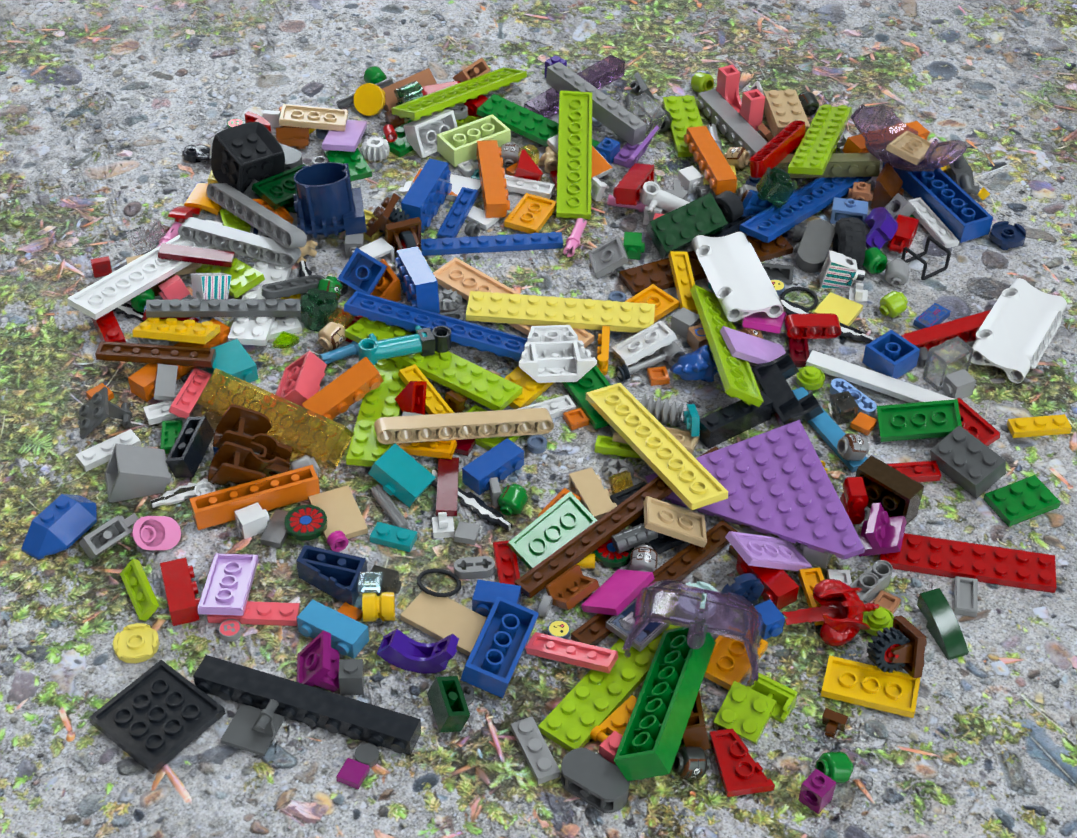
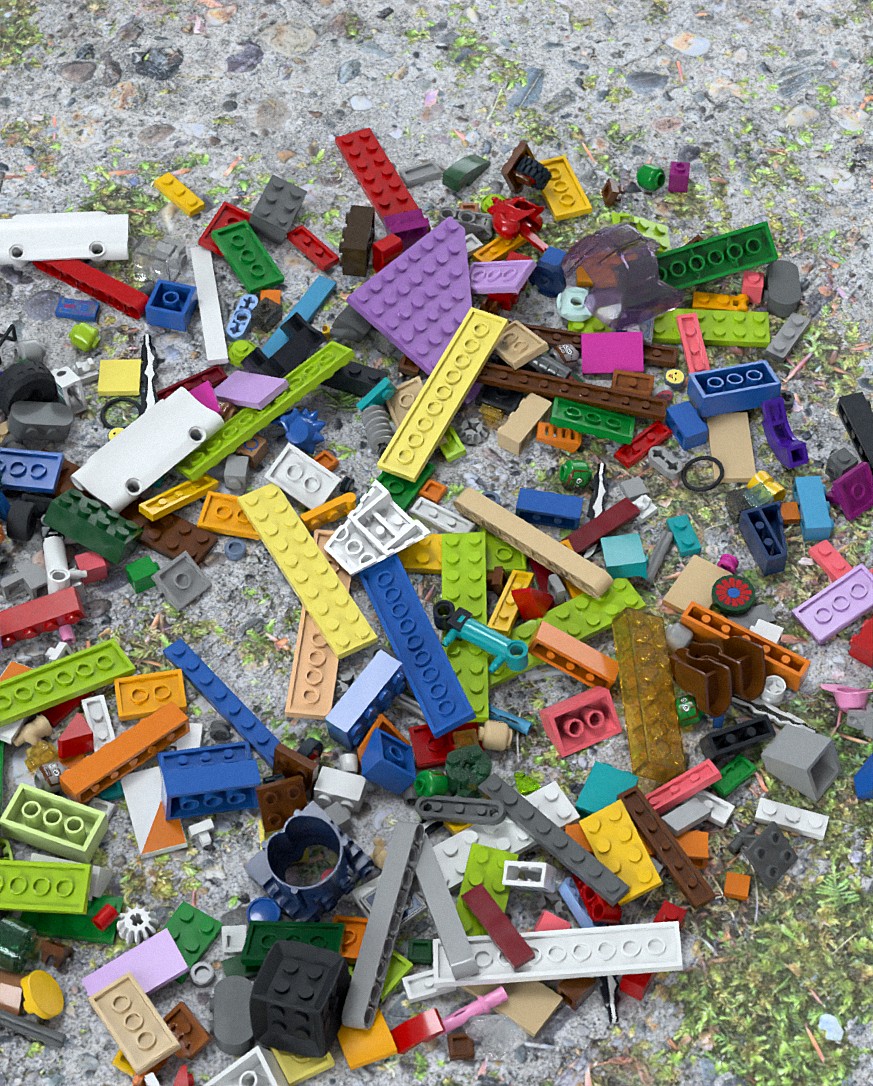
camera: 125 degrees left, 10 degrees up
(101, 266) = (570, 1043): red plate -> none
(448, 704) = (808, 392): dark green brick -> none
(494, 490) = (578, 488): light grey tile -> none
(573, 240) = (172, 630): bright pink pin -> none
(736, 766) = (697, 221): red wing -> none
(779, 272) = (91, 441): dark grey slope -> none
(812, 326) = (171, 370): red beam -> none
(853, 447) = (321, 281): light grey head -> none
(1021, 500) = (284, 169): green plate -> none

